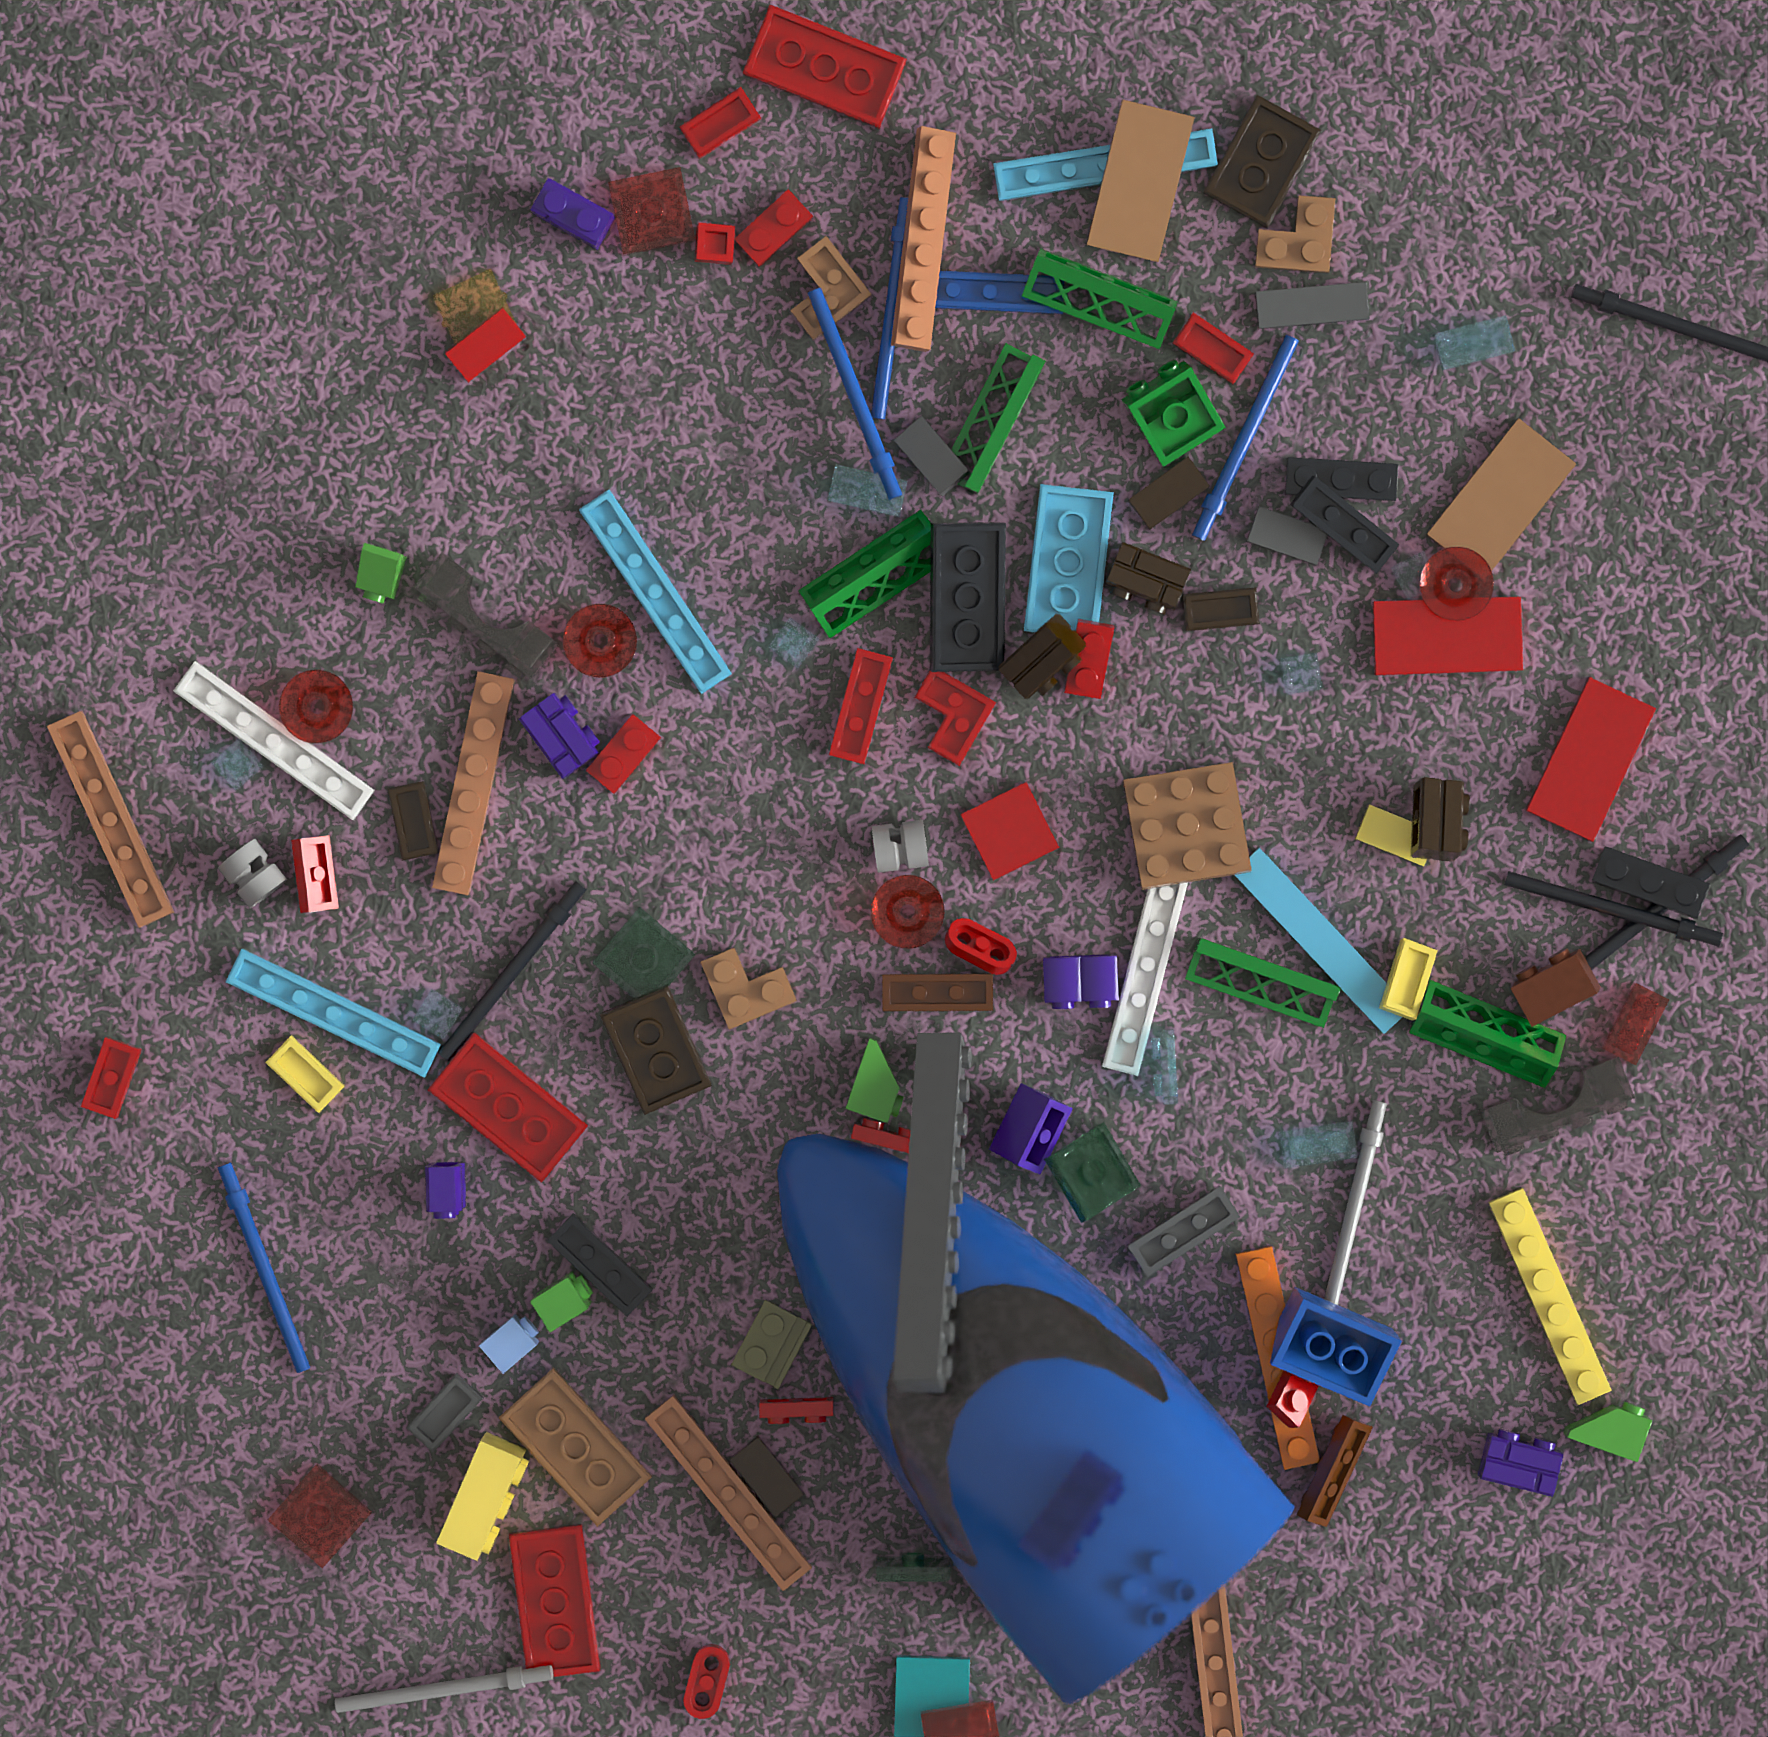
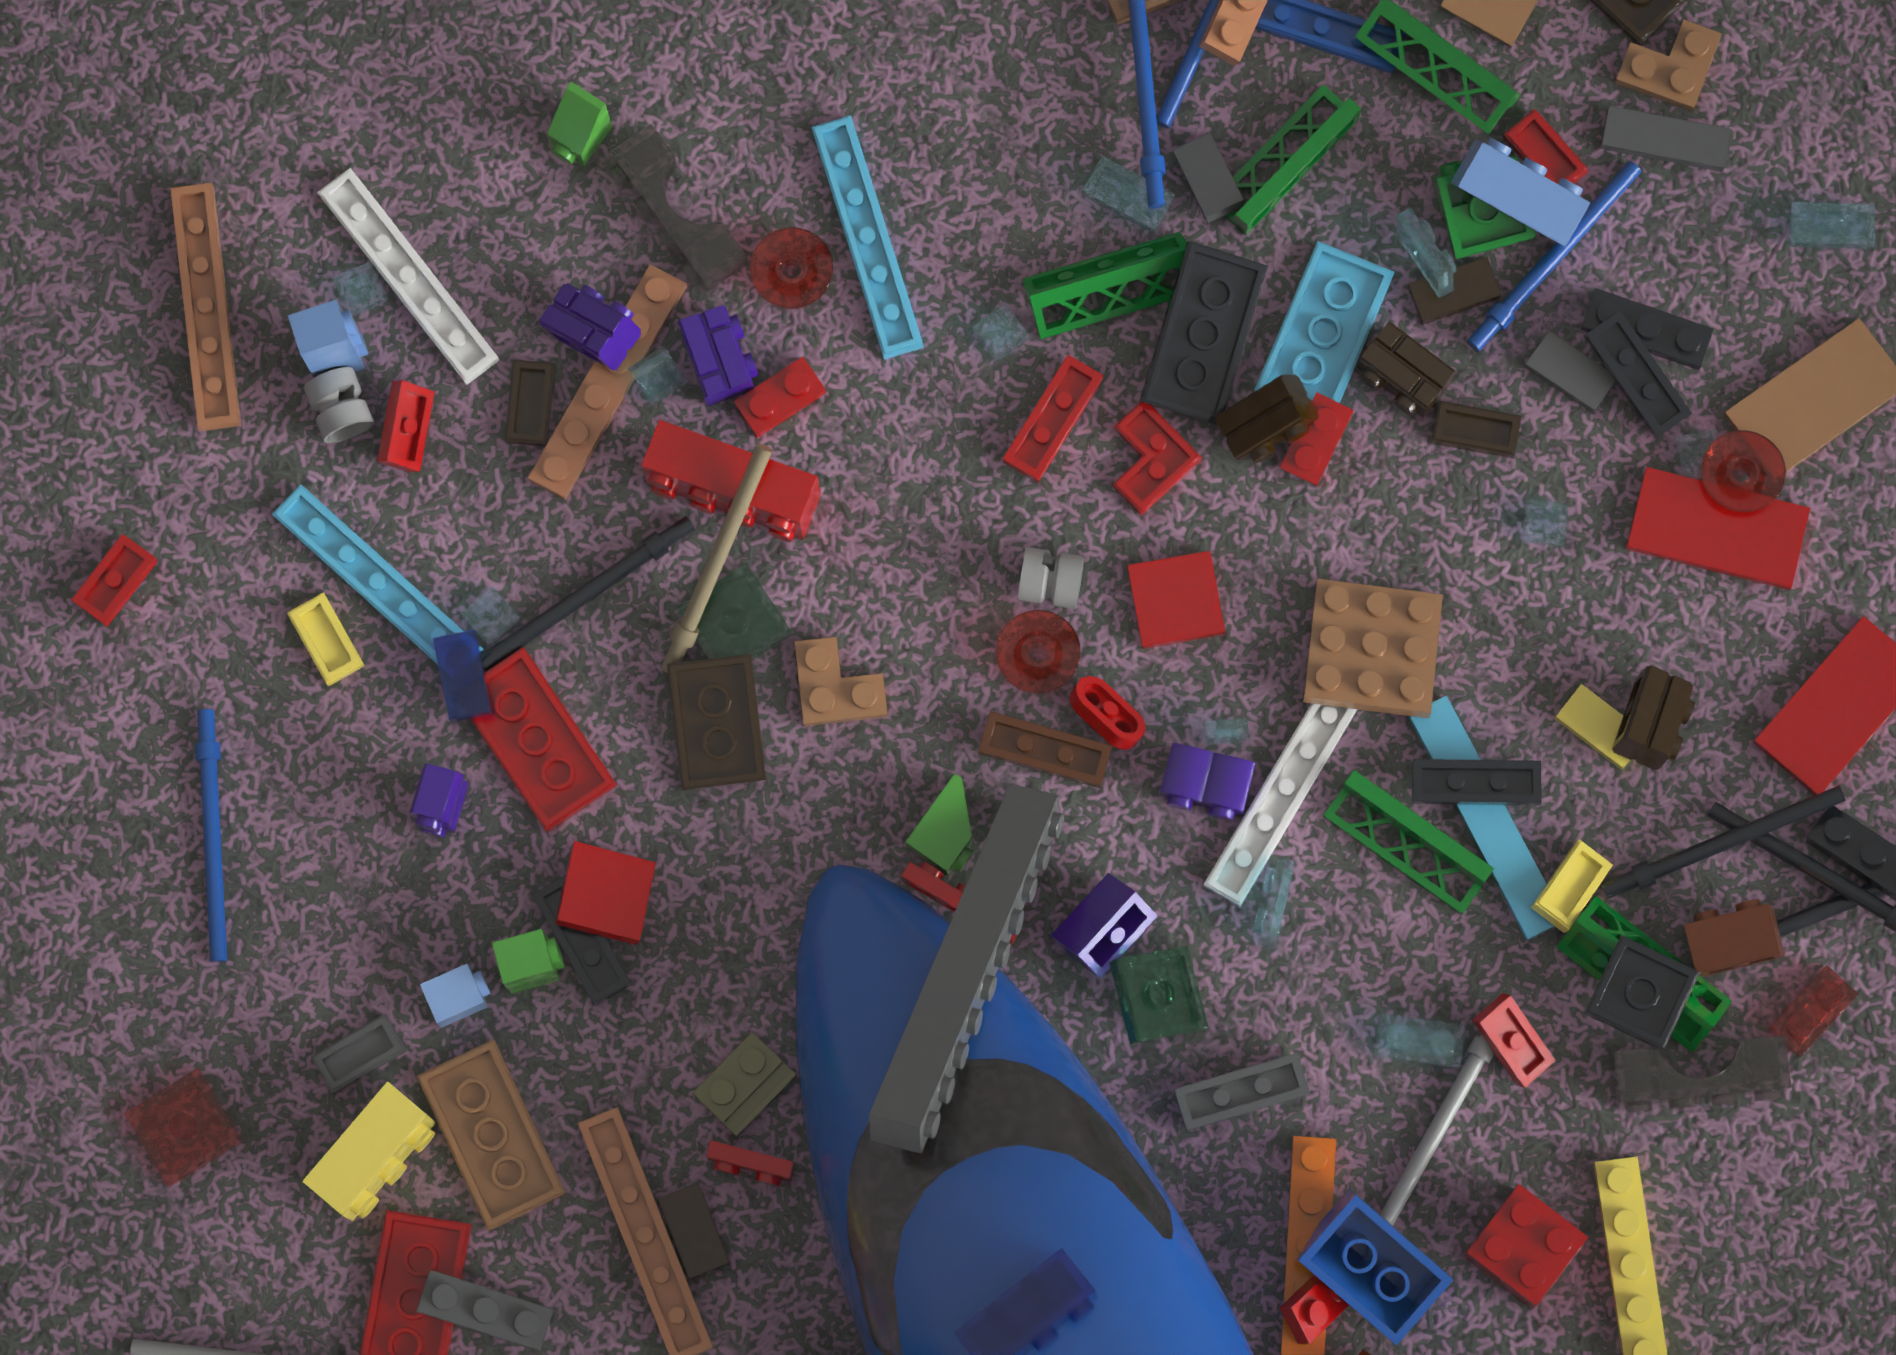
camera: 30 degrees right, 10 degrees down
(228, 828) = (328, 338): none -> medium blue brick
(297, 700) = (459, 231): clear red dish -> none
(431, 1076) = (462, 675): none -> clear blue plate
(445, 744) = (590, 325): none -> dark purple brick
(514, 767) = (657, 375): none -> clear light blue tile
(605, 844) = (711, 472): none -> red brick
(607, 981) = (686, 630): none -> dark tan bar
(608, 1222) = (605, 893): none -> red tile
(615, 1593) = (484, 1310): none -> dark grey plate
(1084, 933) = (1226, 731): none -> clear light blue tile
(1126, 460) = (1420, 243): none -> clear light blue plate
(1203, 398) = (1521, 190): none -> medium blue brick
(1305, 917) = (1476, 782): none -> black plate
(1395, 1124) = (1513, 1040): none -> plate
(1452, 1291) = (1525, 1246): none -> red brick
(1466, 949) = (1645, 874): none -> black bar
(1491, 1057) = (1641, 993): none -> black tile

